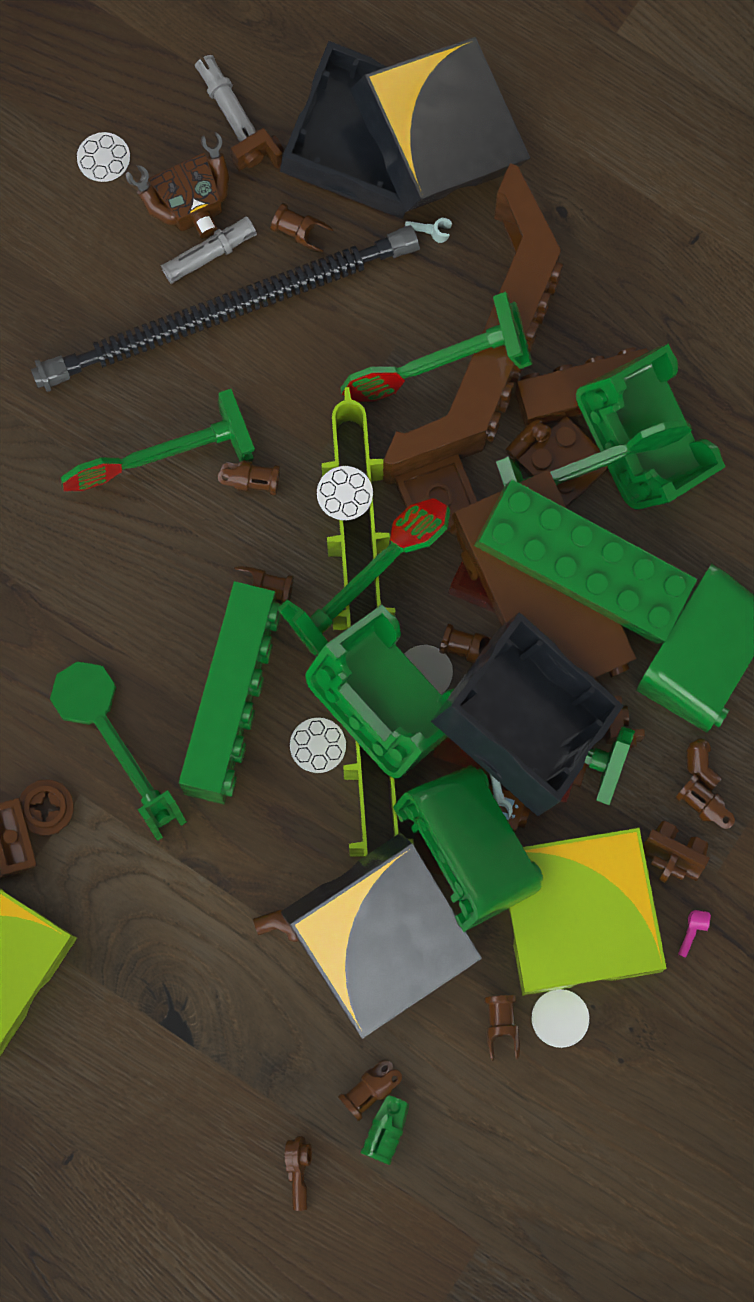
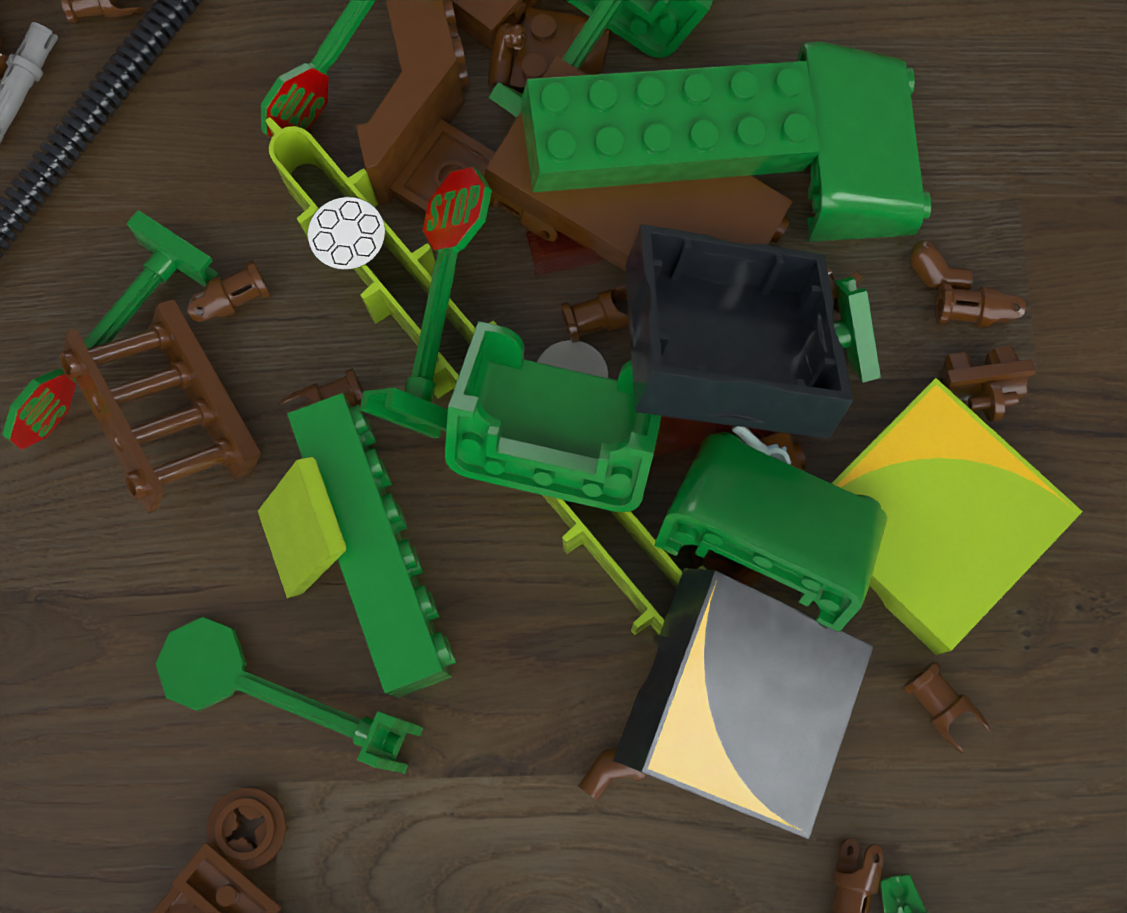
camera: 30 degrees left, 0 degrees up
(194, 511) = (188, 370): none -> reddish brown fence
(195, 654) = (301, 527): none -> lime tile
(317, 745) = (510, 536): white sticker -> none
(560, 1018) = (997, 652): white sticker -> none
(696, 921) = (1058, 440): dark pink hand -> none

